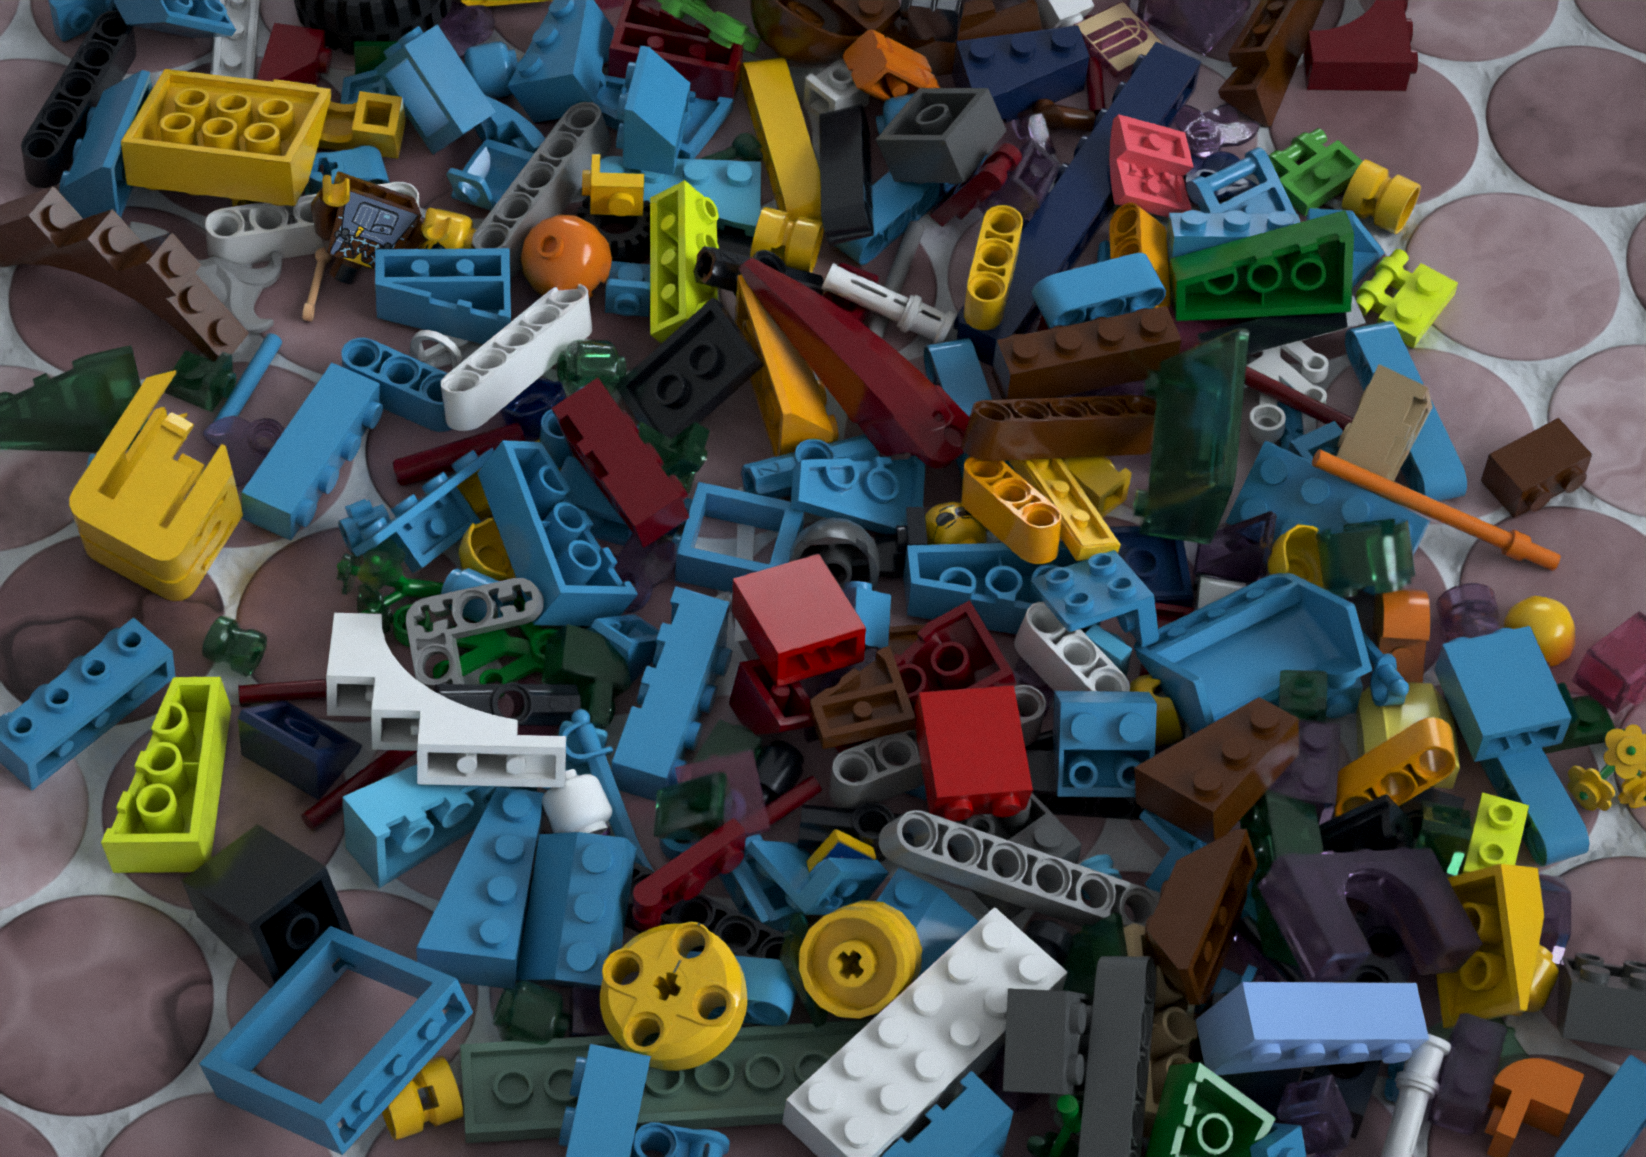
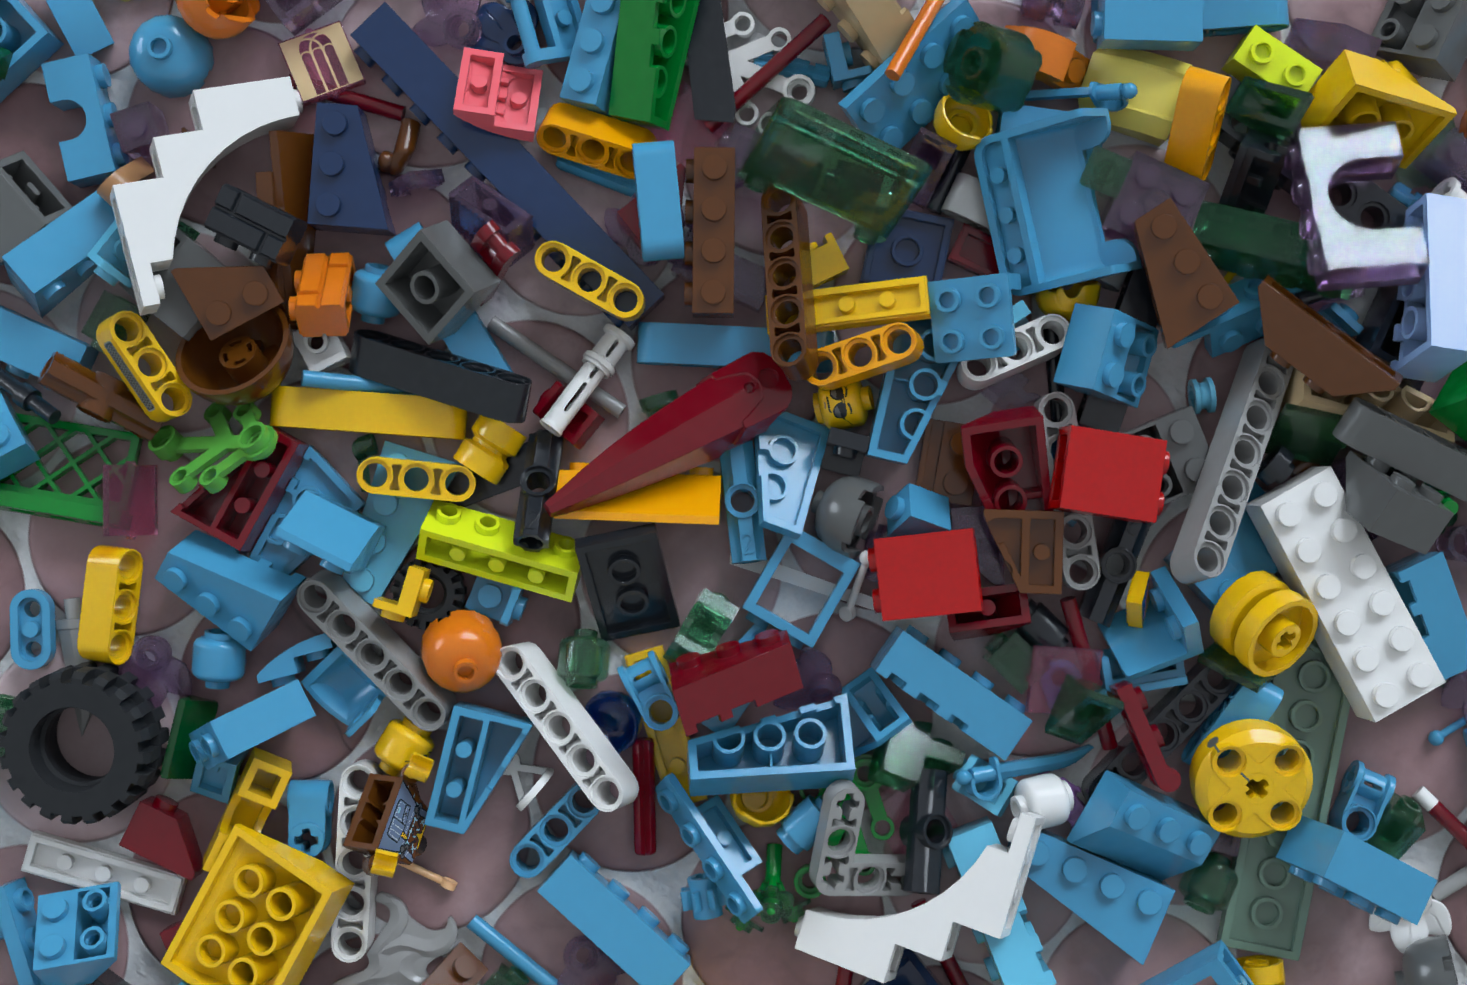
camera: 70 degrees left, 35 degrees up
(732, 162) = (396, 485): none -> yellow beam
(808, 104) = (345, 382): none -> dark azure bar

